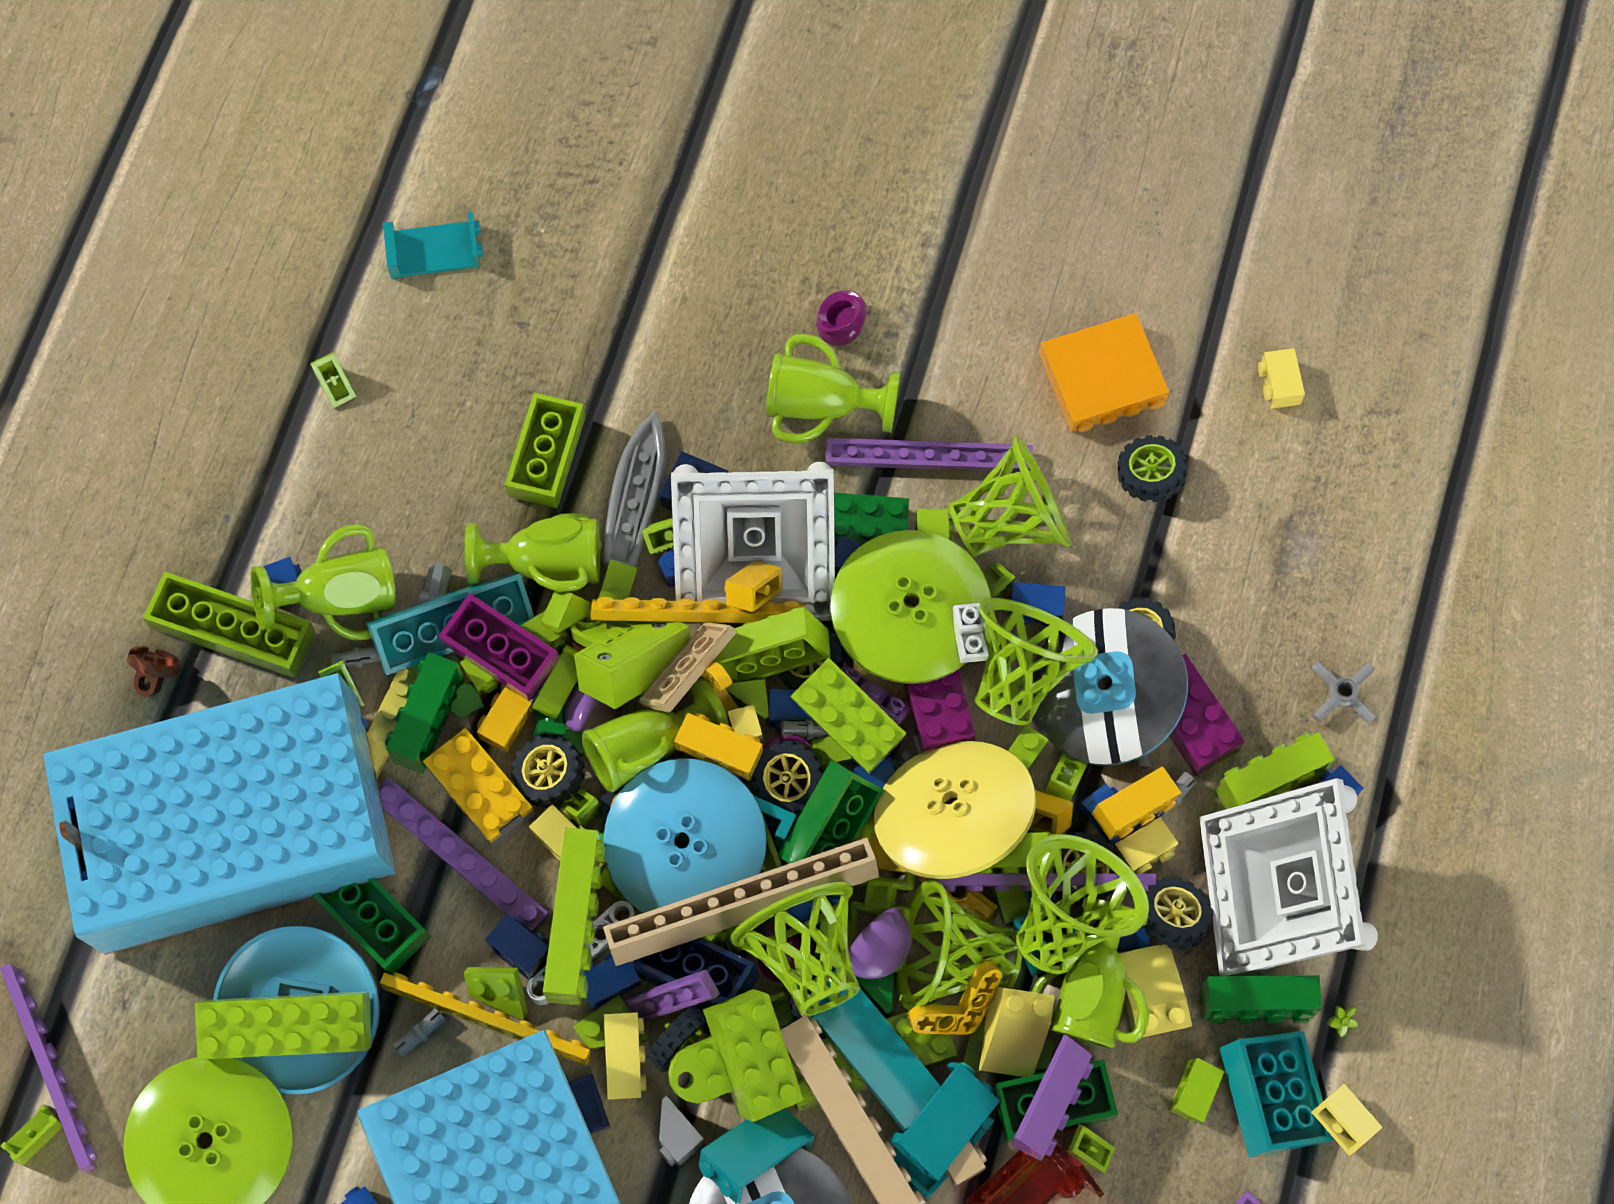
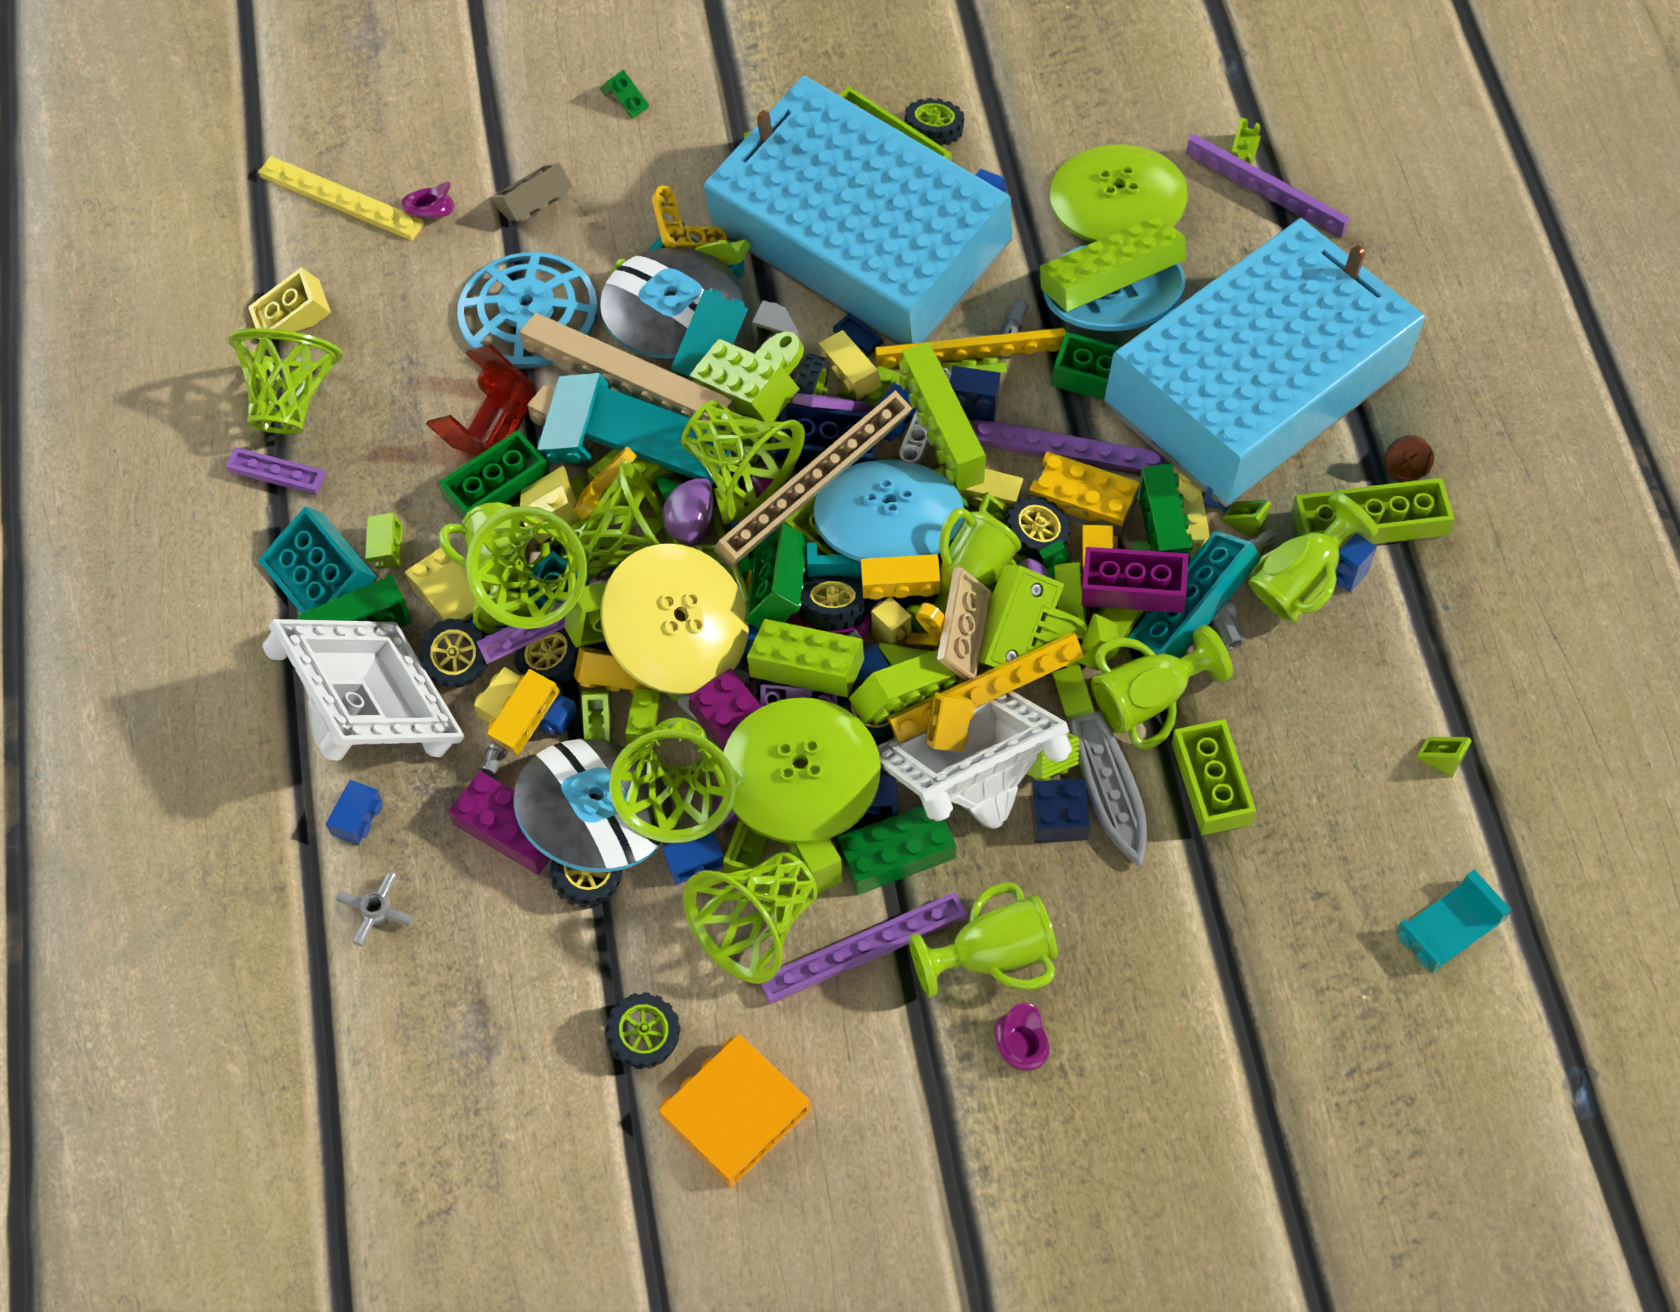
camera: 155 degrees right, 10 degrees down
(969, 633) = (740, 761): white slope -> none
(1052, 1099) = (494, 454): medium lavender slope -> none
(1090, 1149) = (452, 461): lime slope -> none
(1277, 773) = (410, 798): lime brick -> none
(1282, 378) = (552, 1191): light yellow brick -> none
(1346, 1119) = (250, 569): light yellow brick -> none

